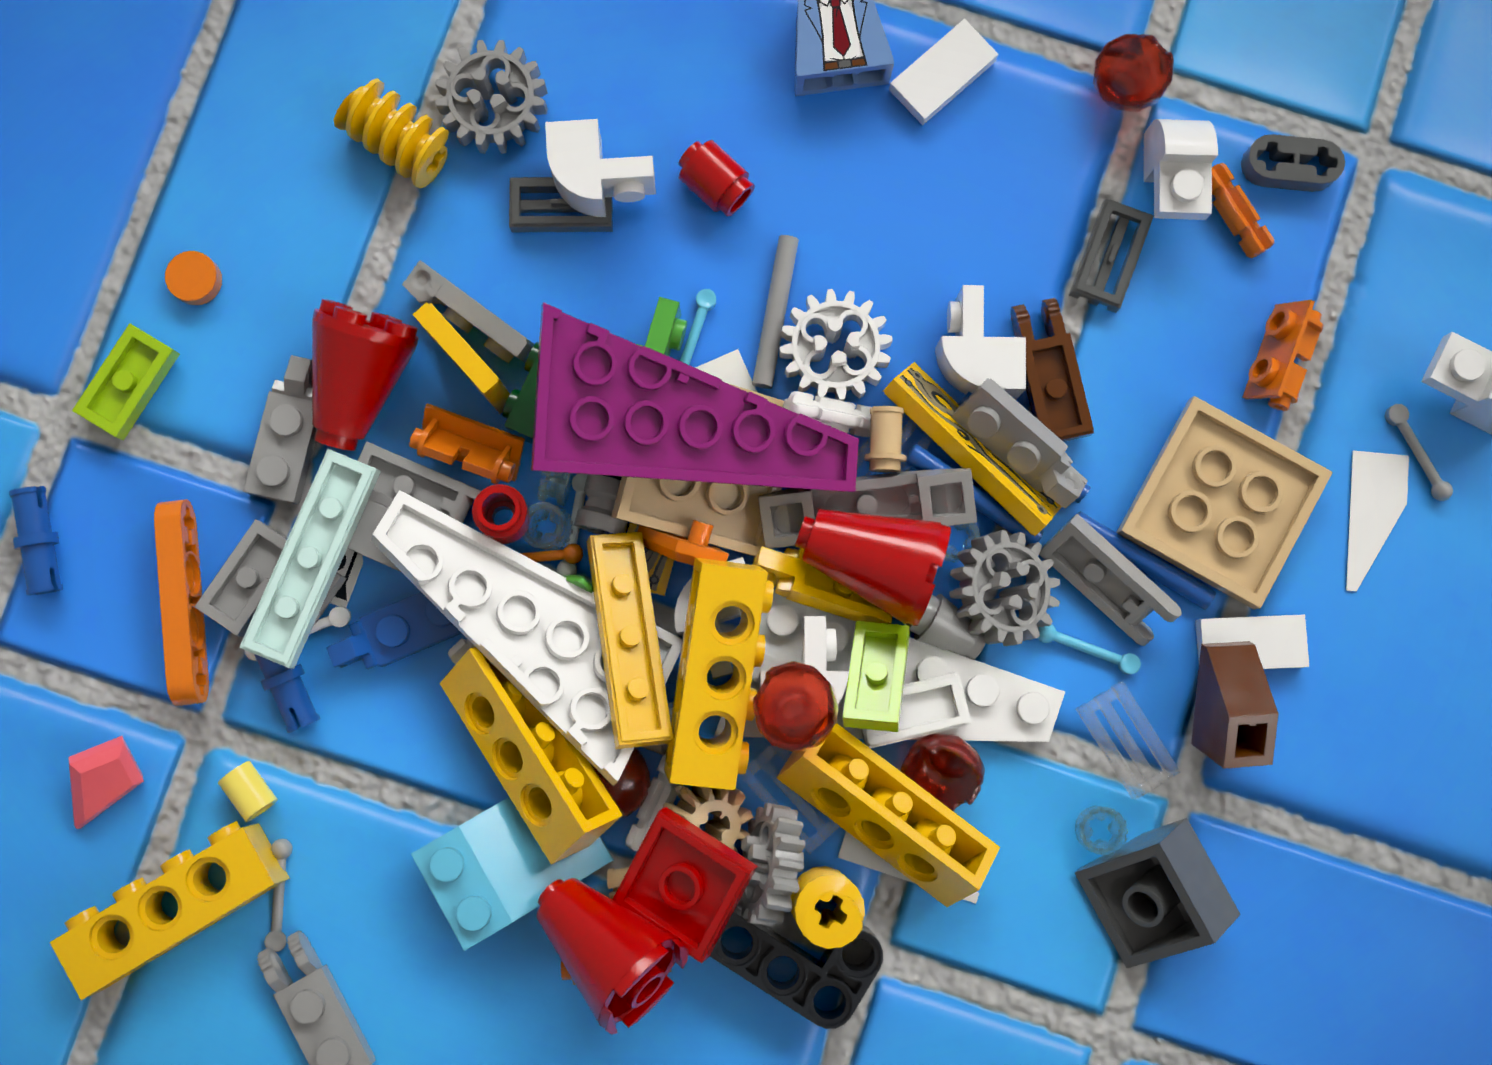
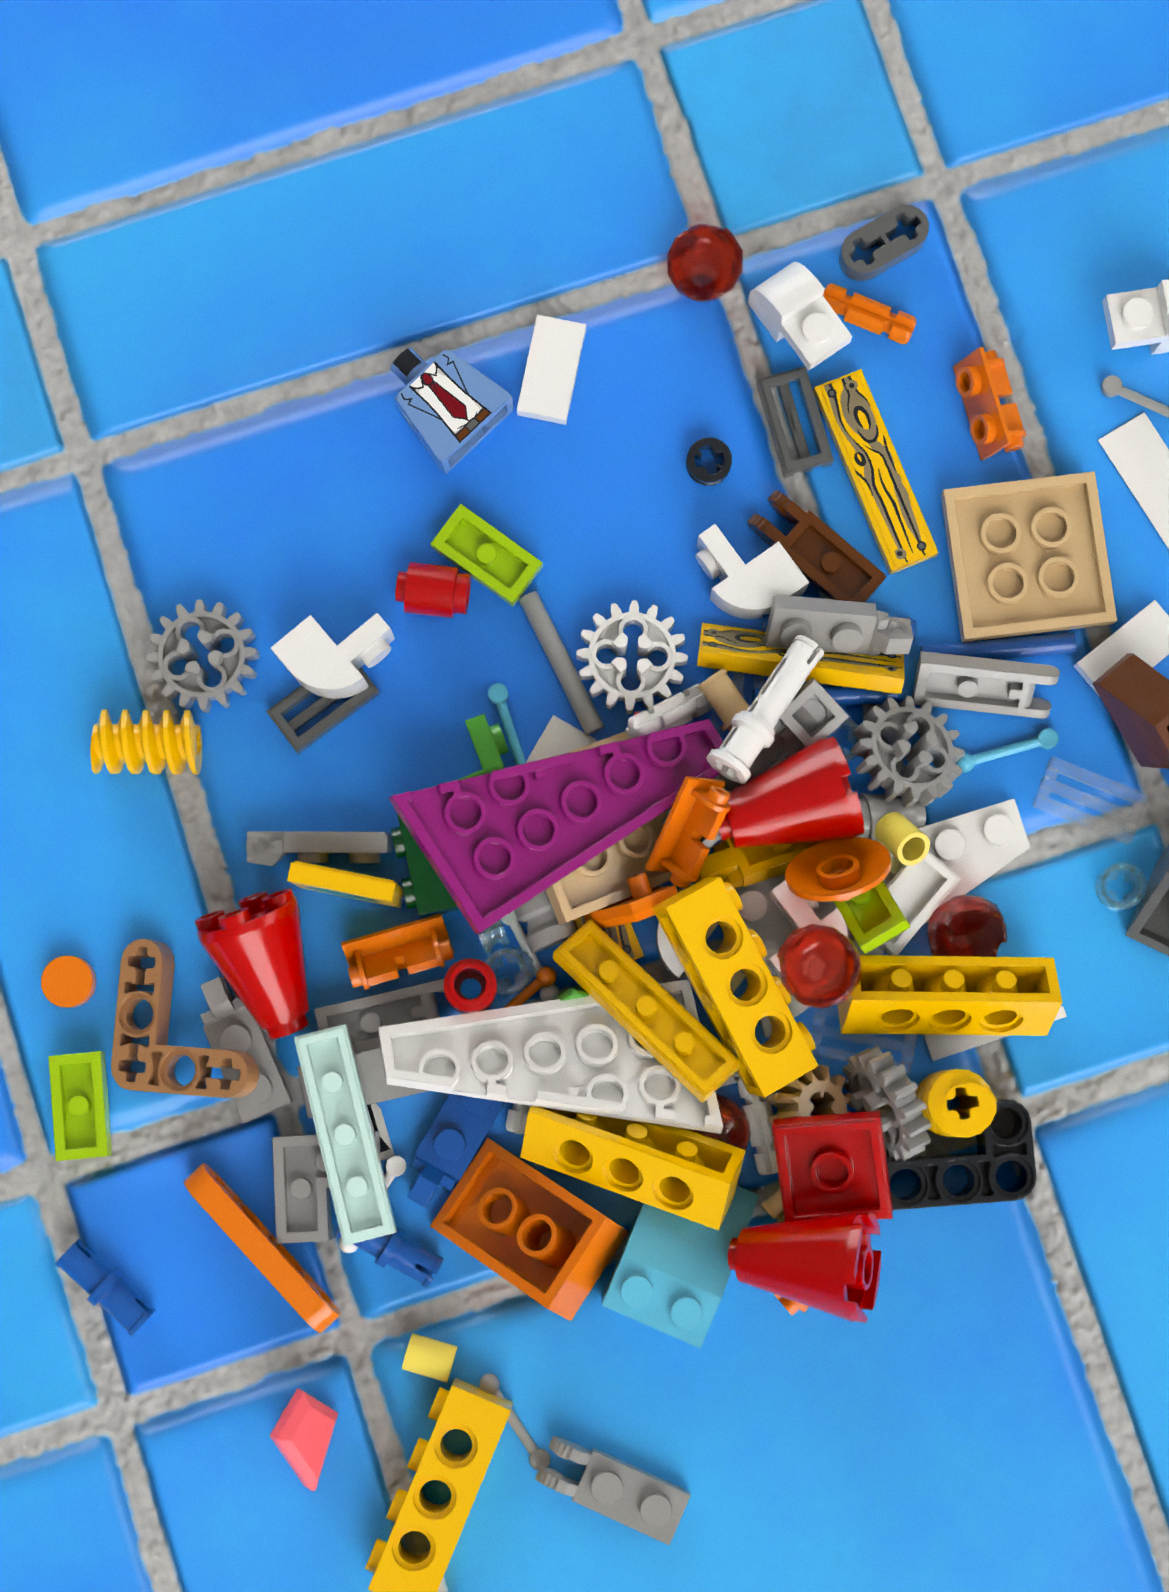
camera: 30 degrees left, 0 degrees up
(216, 386) = (158, 1056): none -> medium nougat beam
(403, 749) = (529, 1229): none -> orange slope
(779, 180) = (486, 555): none -> lime plate
(781, 508) = (695, 813): none -> orange hinge
(872, 639) = (838, 869): none -> orange dish
(890, 472) = (754, 727): none -> white pin
(946, 655) = (902, 838): none -> light yellow hinge
(1032, 233) = (717, 449): none -> black bush
(1147, 343) = (875, 472): none -> yellow tile

